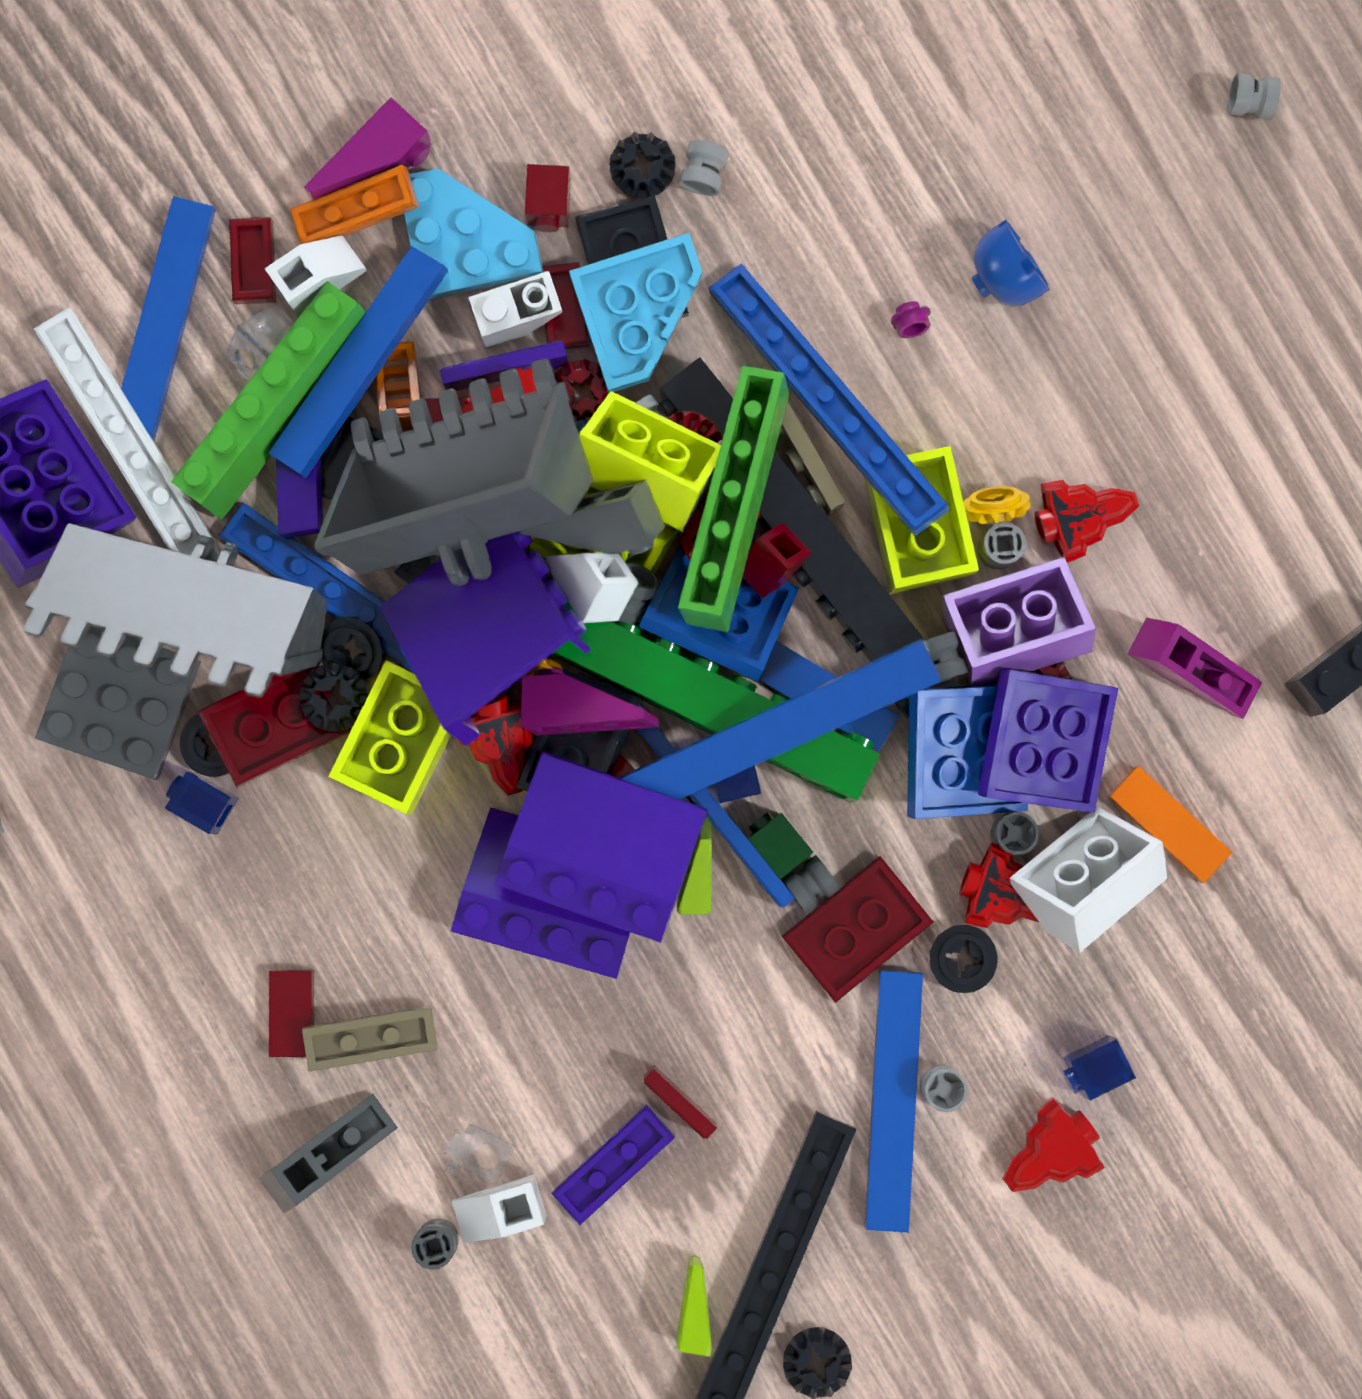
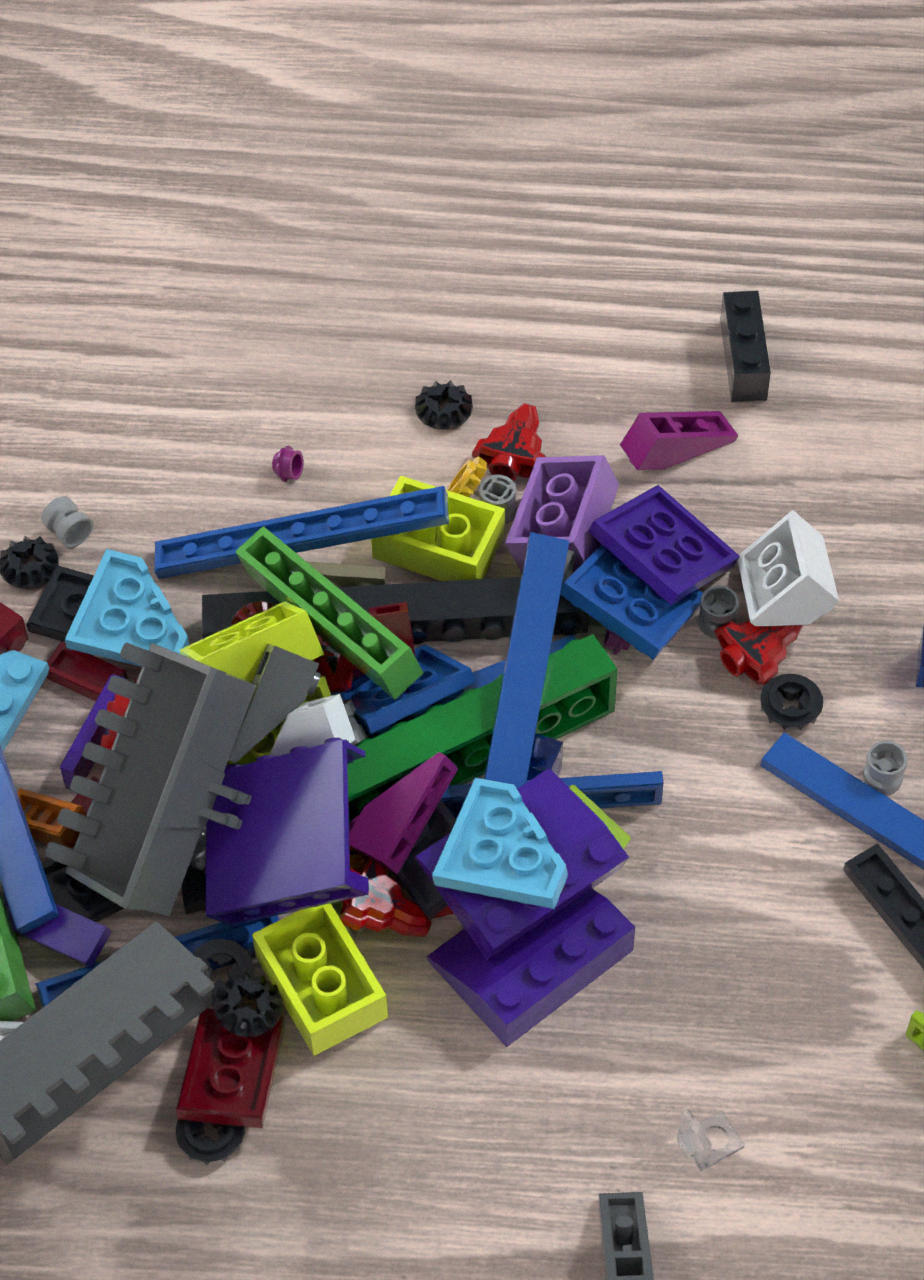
camera: 50 degrees left, 30 degrees down
(116, 707) = (113, 1187): dark grey plate -> none
(200, 802) = (251, 1167): clear blue brick -> none
(289, 1011) = (483, 1215): dark red tile -> none
(369, 1038) = (549, 1158): dark tan plate -> none
(438, 1235) = (760, 1225): dark grey wheel -> none
(500, 1210) = (768, 1142): white slope -> none
(515, 309) = (59, 698): white slope -> none
(582, 832) = (500, 850): none -> medium azure plate
(613, 1164) = (788, 1044): dark purple tile -> none
(679, 1102) = (769, 956): dark red tile -> none
(778, 843) = (610, 757): dark green brick -> none
(811, 883) = (660, 755): dark grey wheel -> none
(857, 929) = (717, 760): dark red tile -> none
(1007, 268) = (302, 382): blue cylinder -> none
(1076, 431) = (454, 412): none -> black gear
(1171, 823) = (751, 522): orange tile -> none
(1253, 96) = (310, 192): light grey wheel -> none

